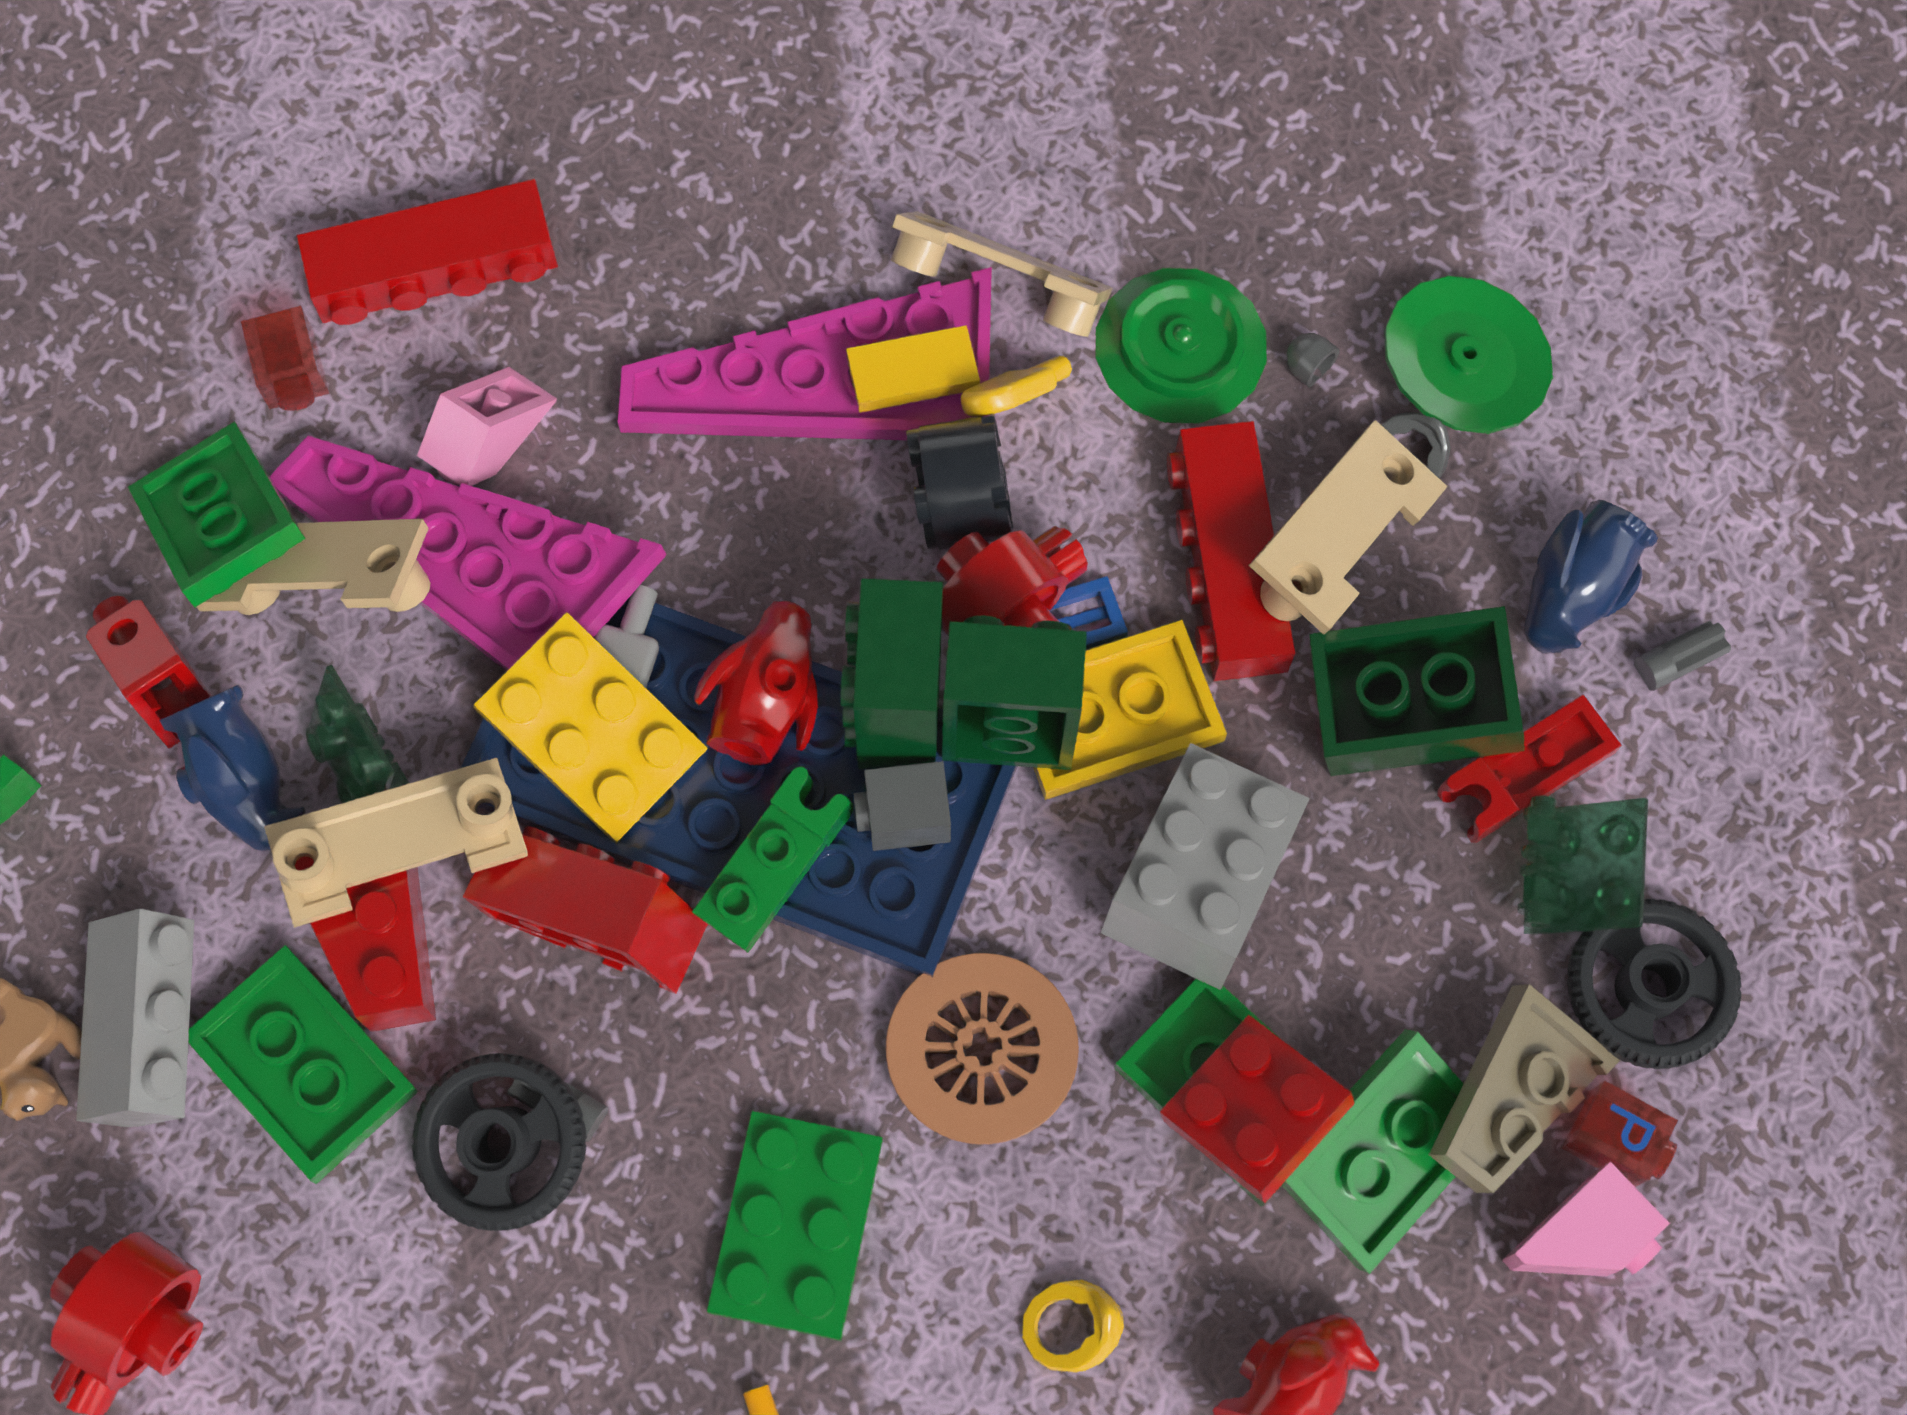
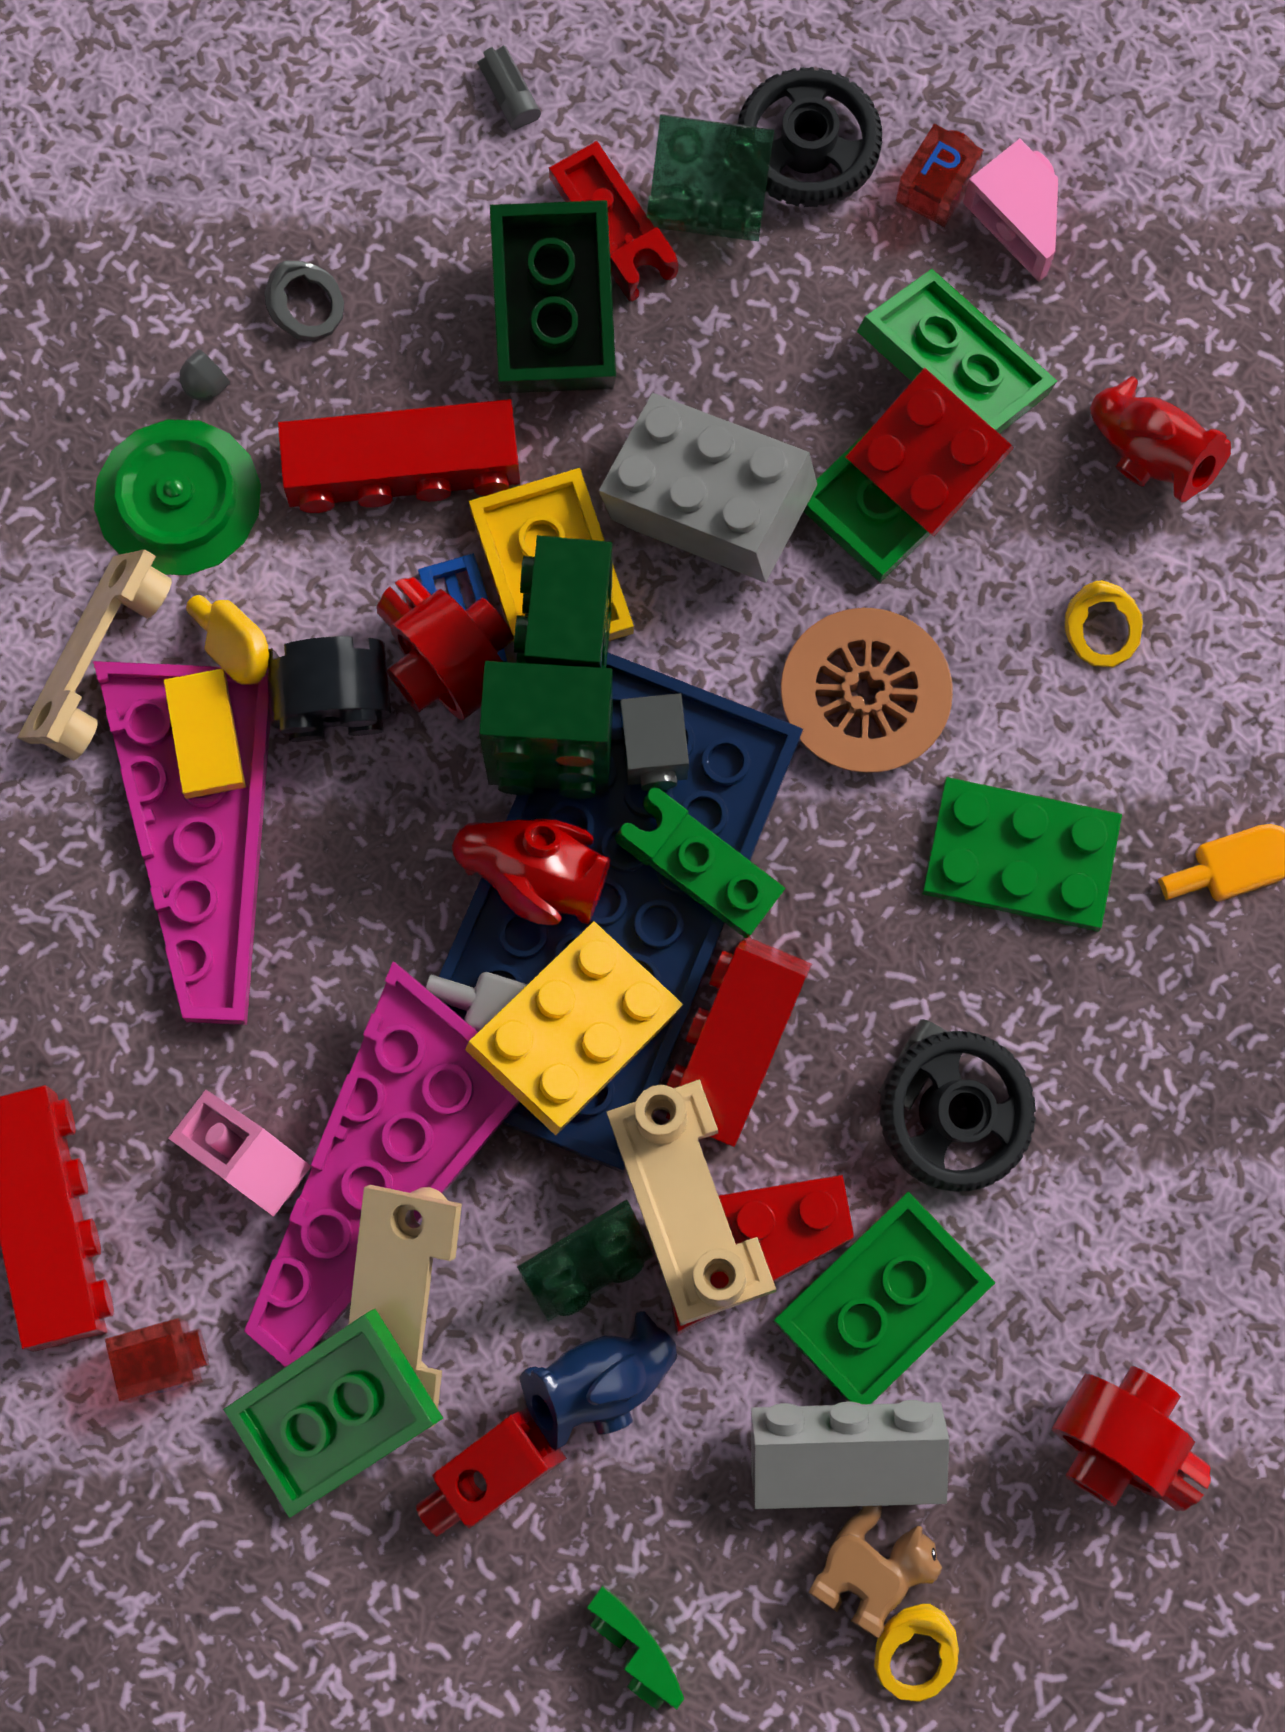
camera: 90 degrees left, 5 degrees up
(1338, 523) = (393, 349): tan brick -> none
(1468, 354) = (210, 236): green piece -> none
(1518, 1085) = (899, 245): dark tan wing -> none
(1585, 574) = (437, 156): dark blue animal -> none

